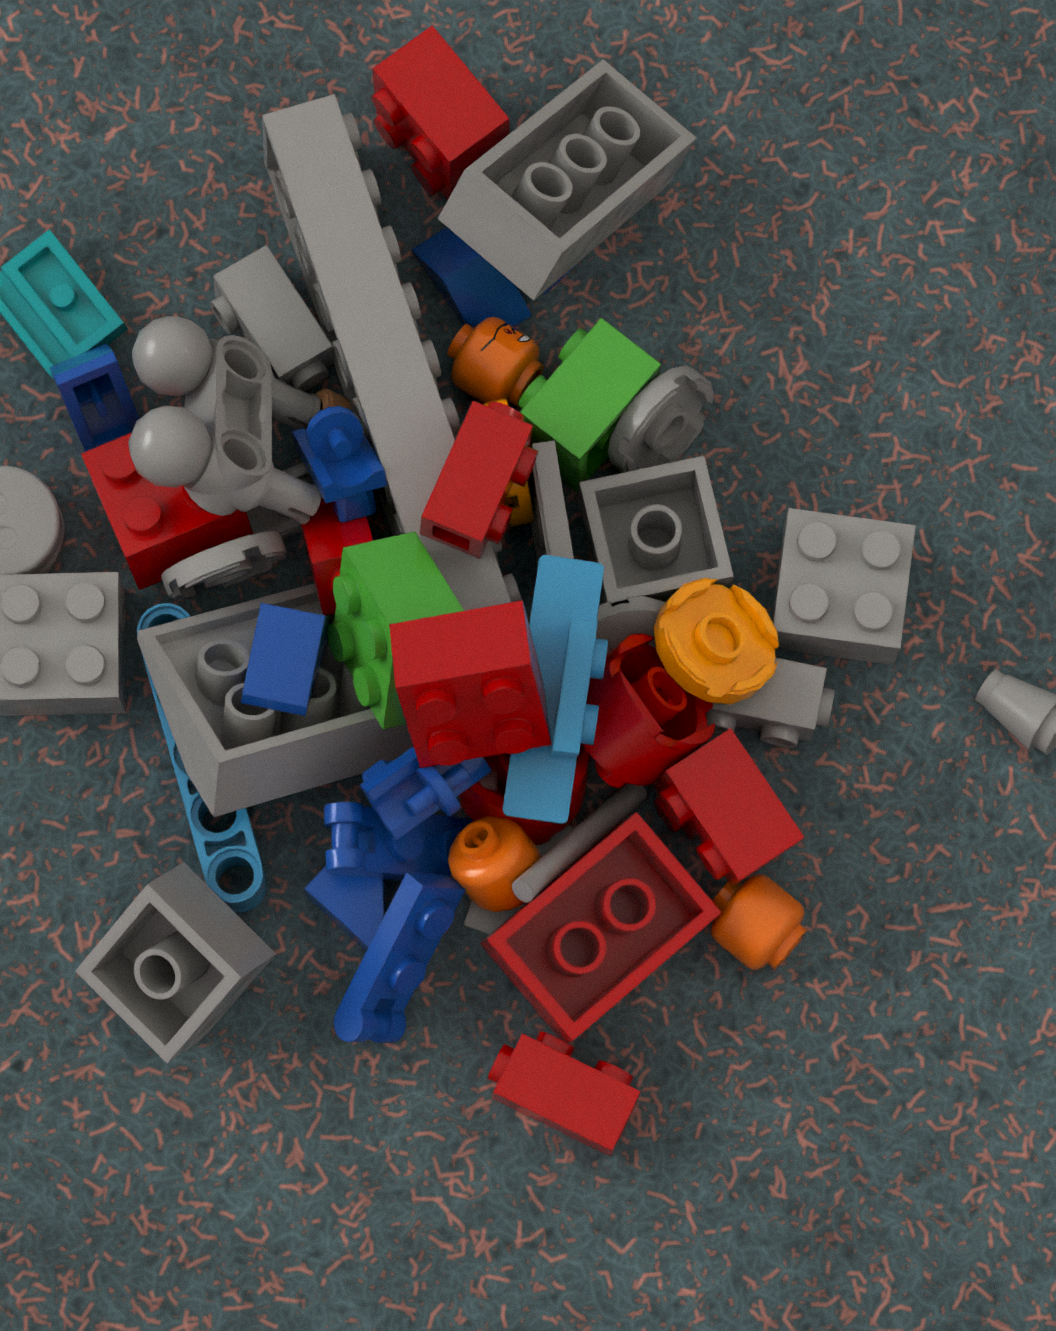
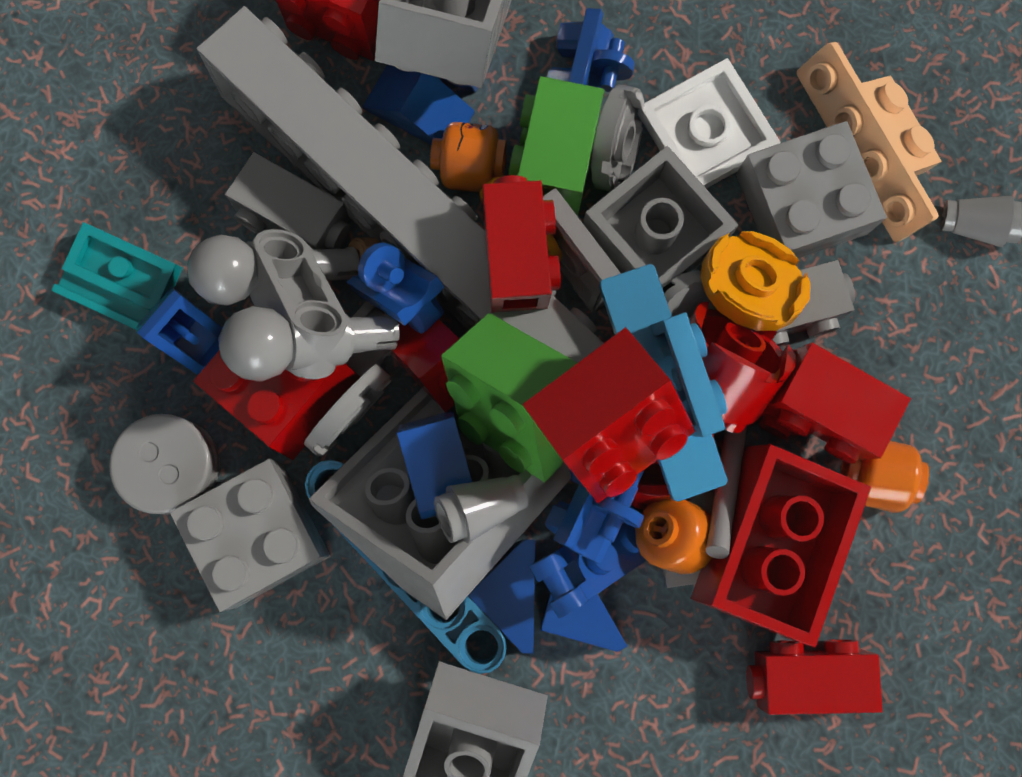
camera: 25 degrees left, 5 degrees up
(292, 843) = (508, 596): none -> blue slope
(303, 713) = (478, 506): none -> light grey cone
(397, 959) = (641, 650): blue plate -> none
(689, 323) = (596, 53): none -> blue hips
(774, 457) = (709, 123): none -> white plate
(959, 562) = (884, 131): none -> light nougat bracket

